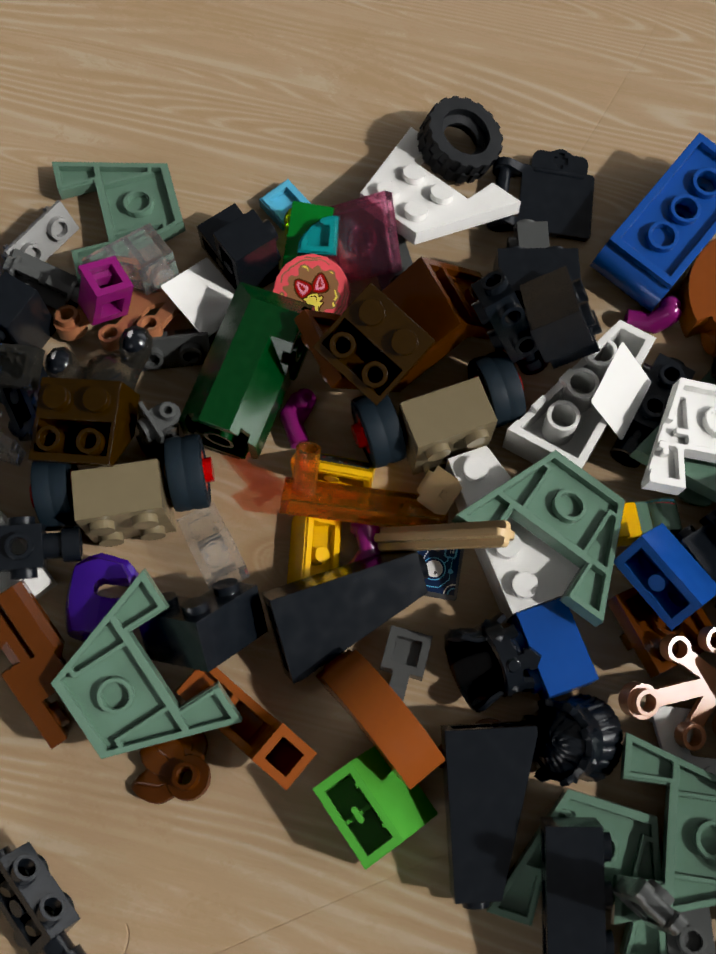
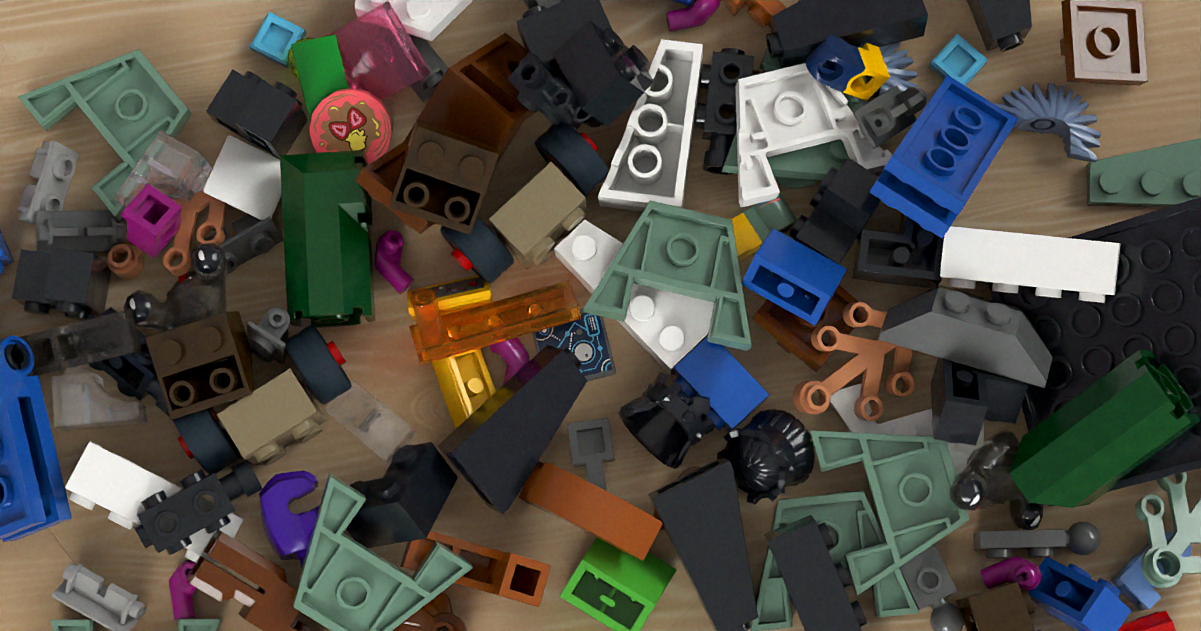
camera: 20 degrees left, 10 degrees up
(321, 238) = (336, 71): teal tile -> none
(438, 491) = (558, 281): tan piece -> none
(445, 536) = (580, 329): tan axle -> none
(621, 391) = (689, 115): white sticker -> none
(650, 904) = (872, 565): dark grey hinge -> none

